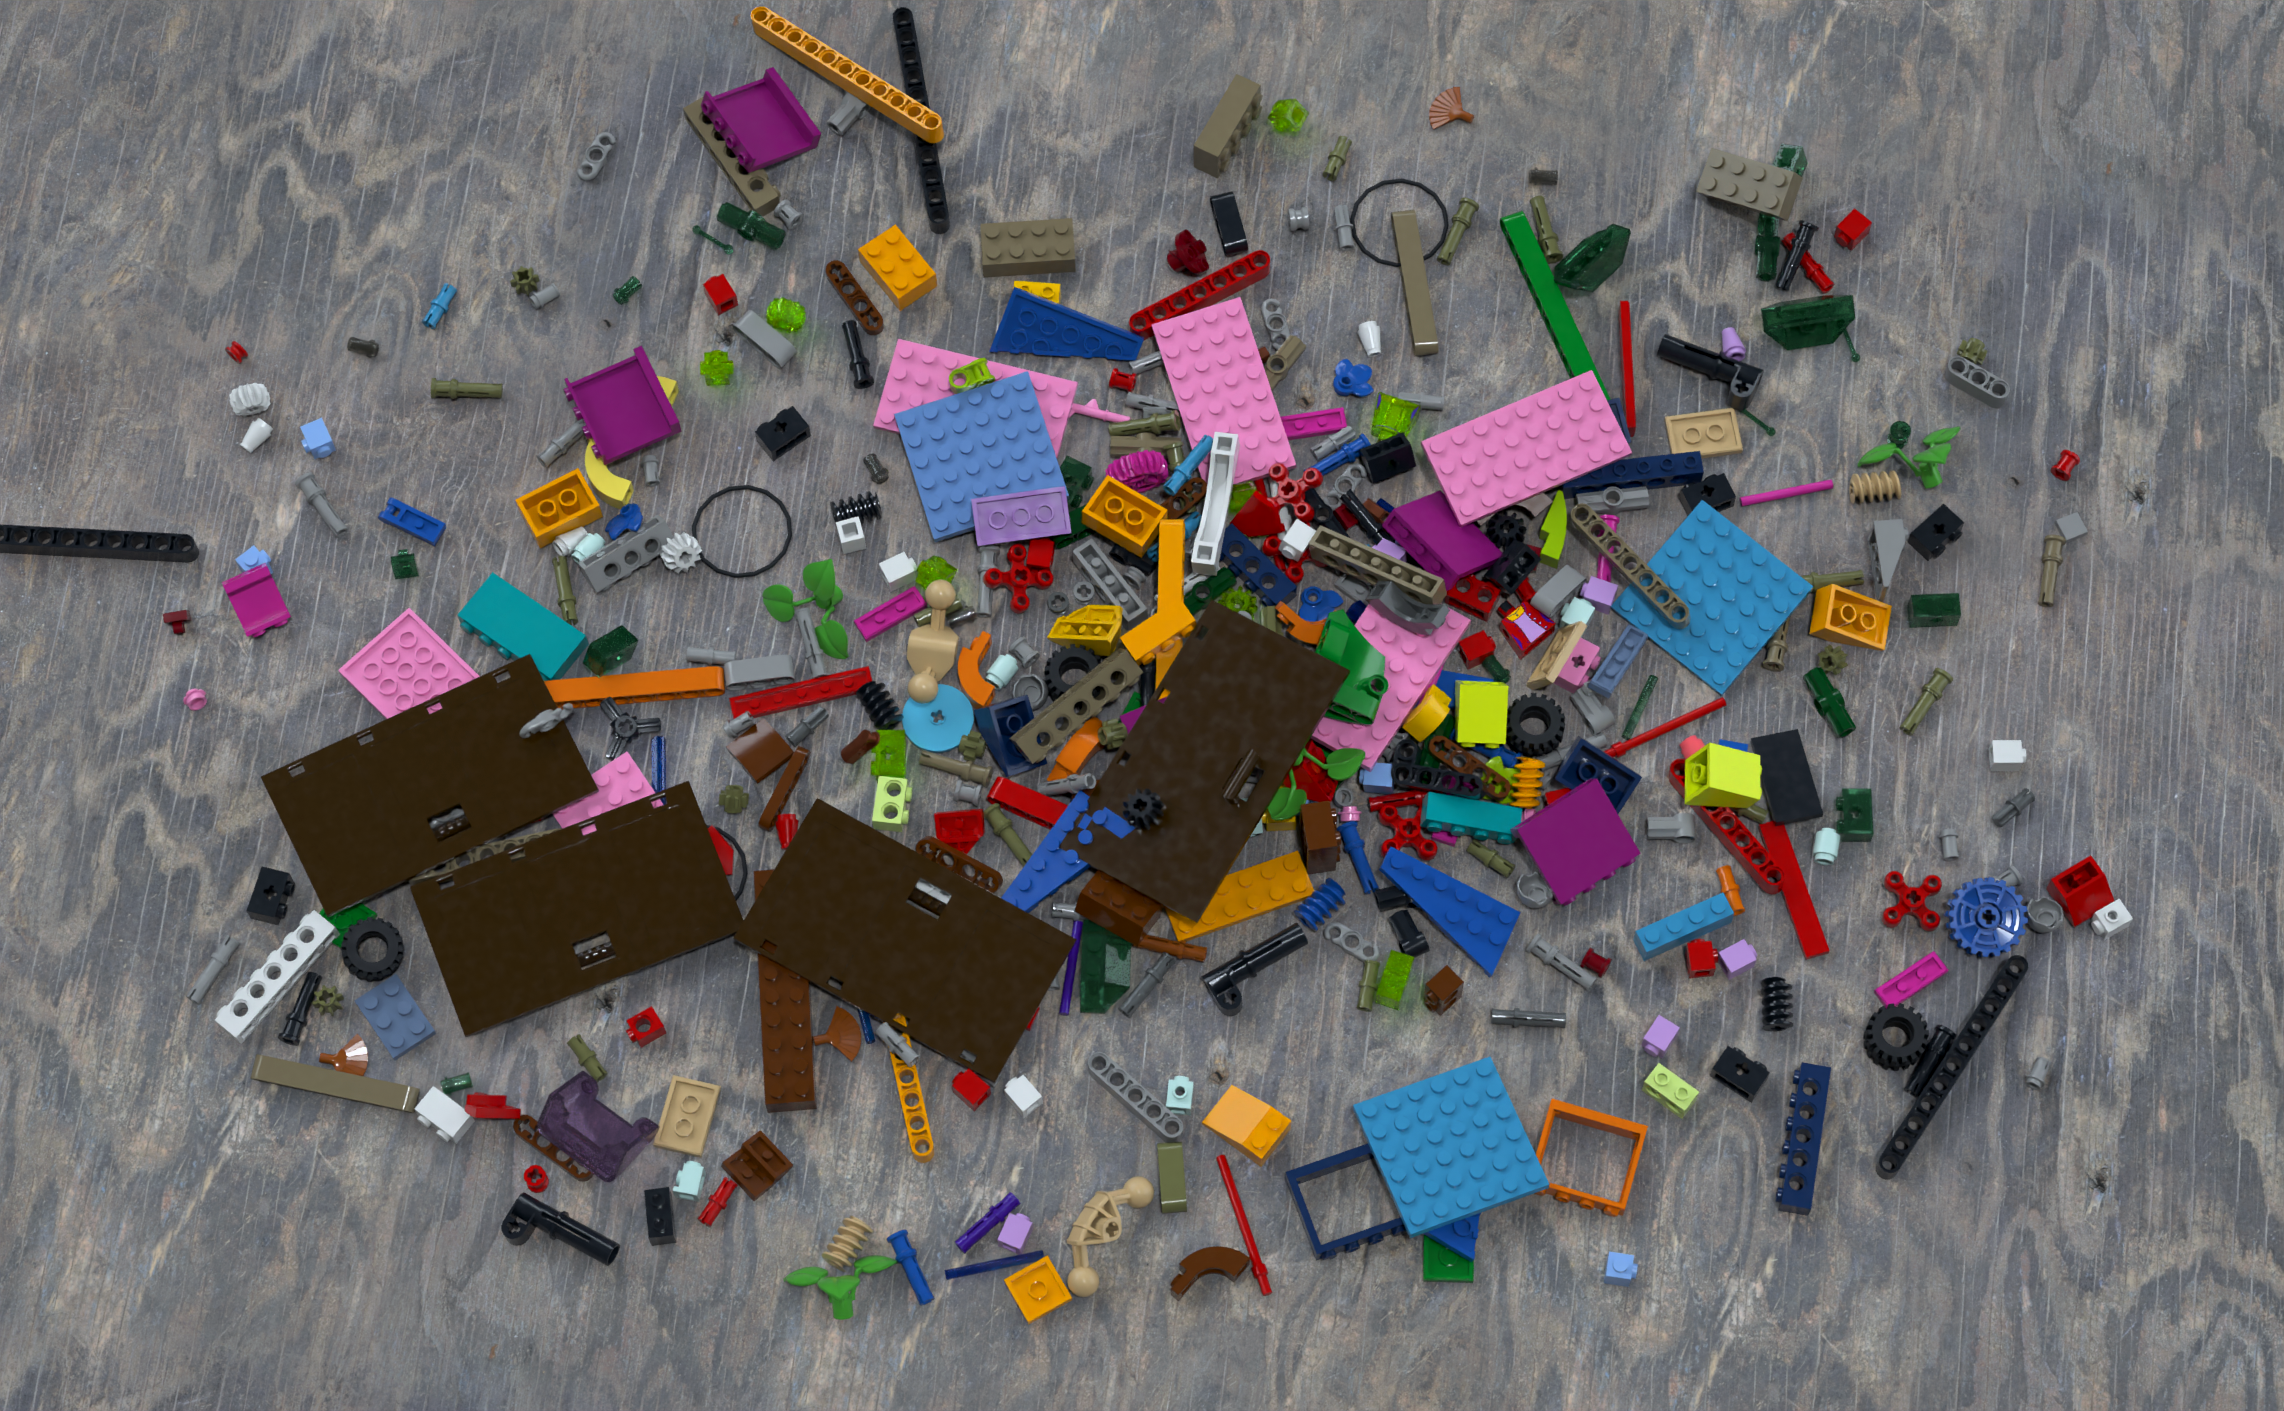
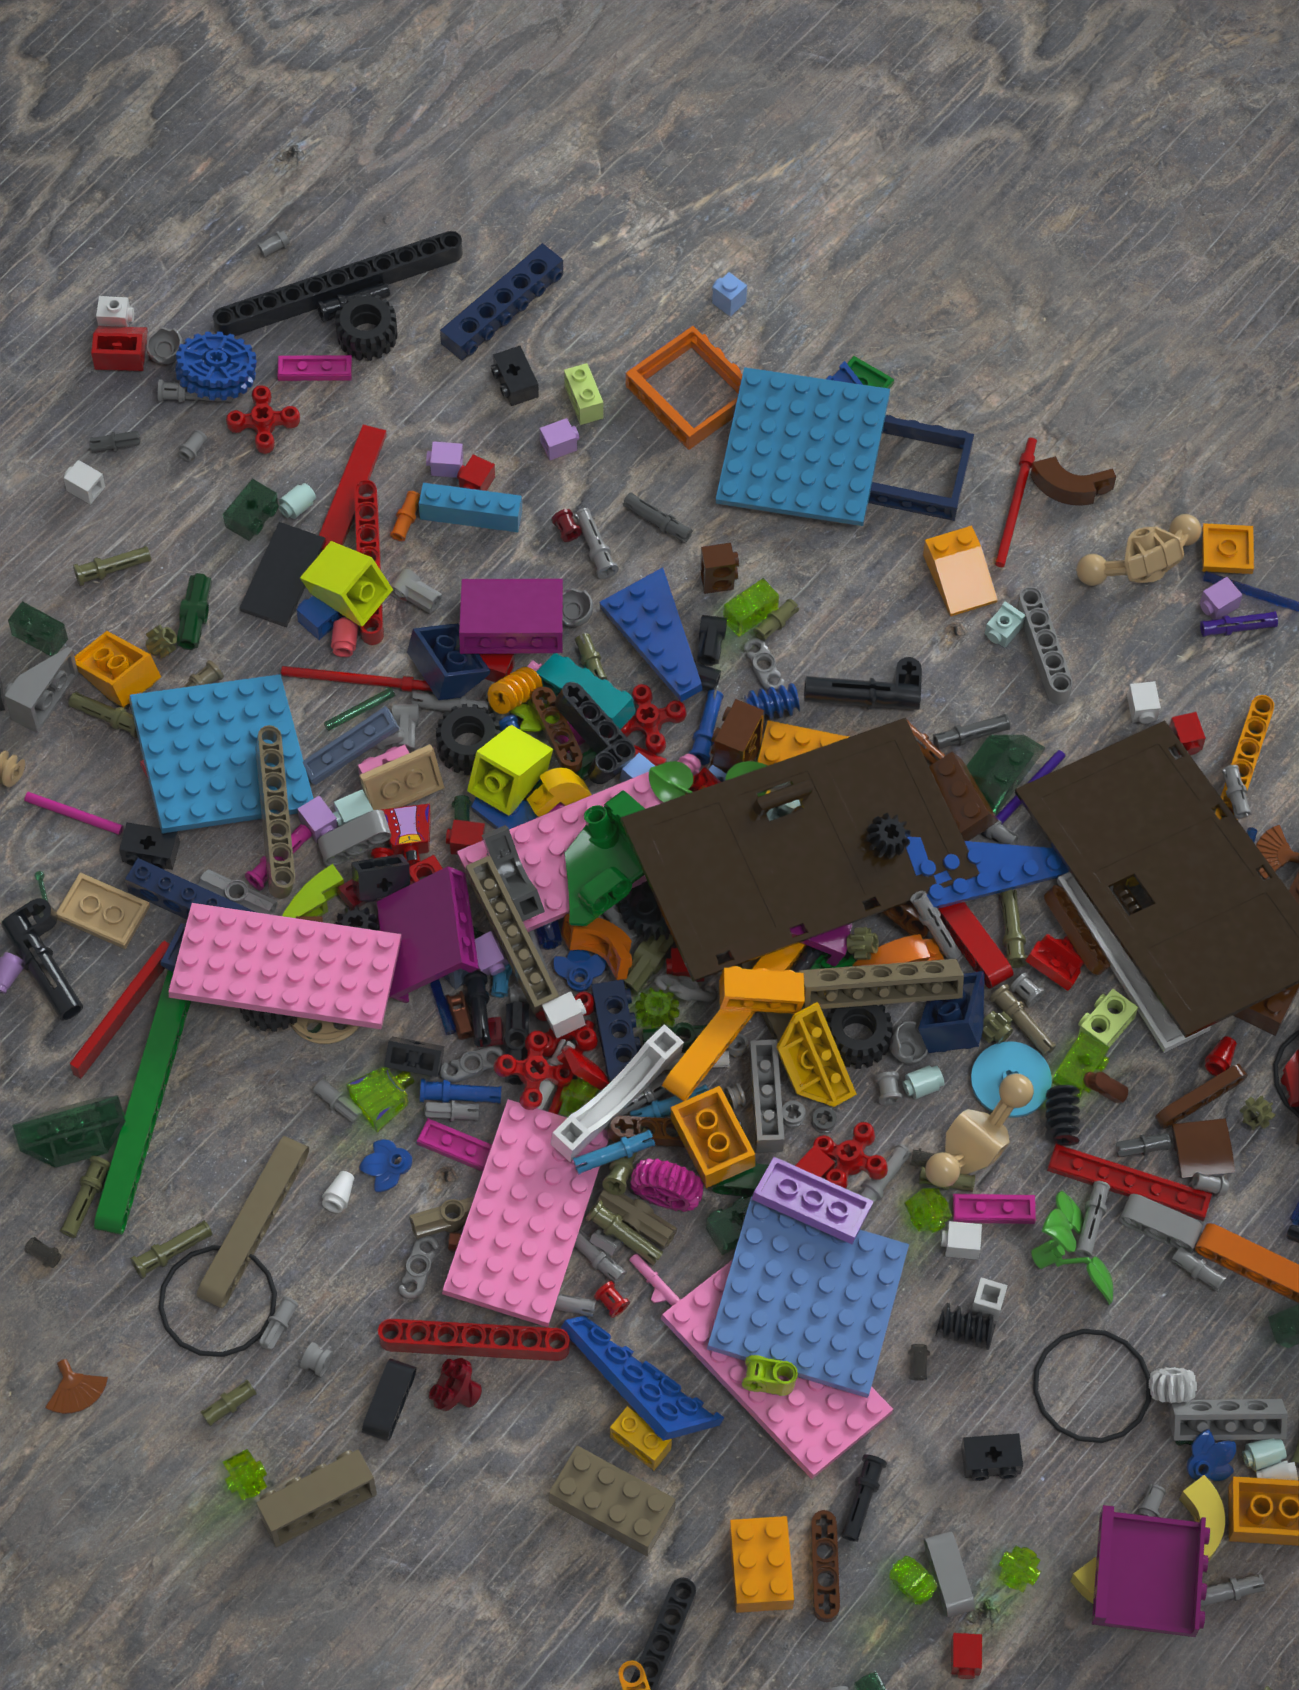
camera: 150 degrees left, 5 degrees down
(972, 684) = (959, 1081): orange arch -> none
(1172, 1177) = (1055, 566): olive beam -> none
(1775, 1004) = (443, 404): black piece -> none

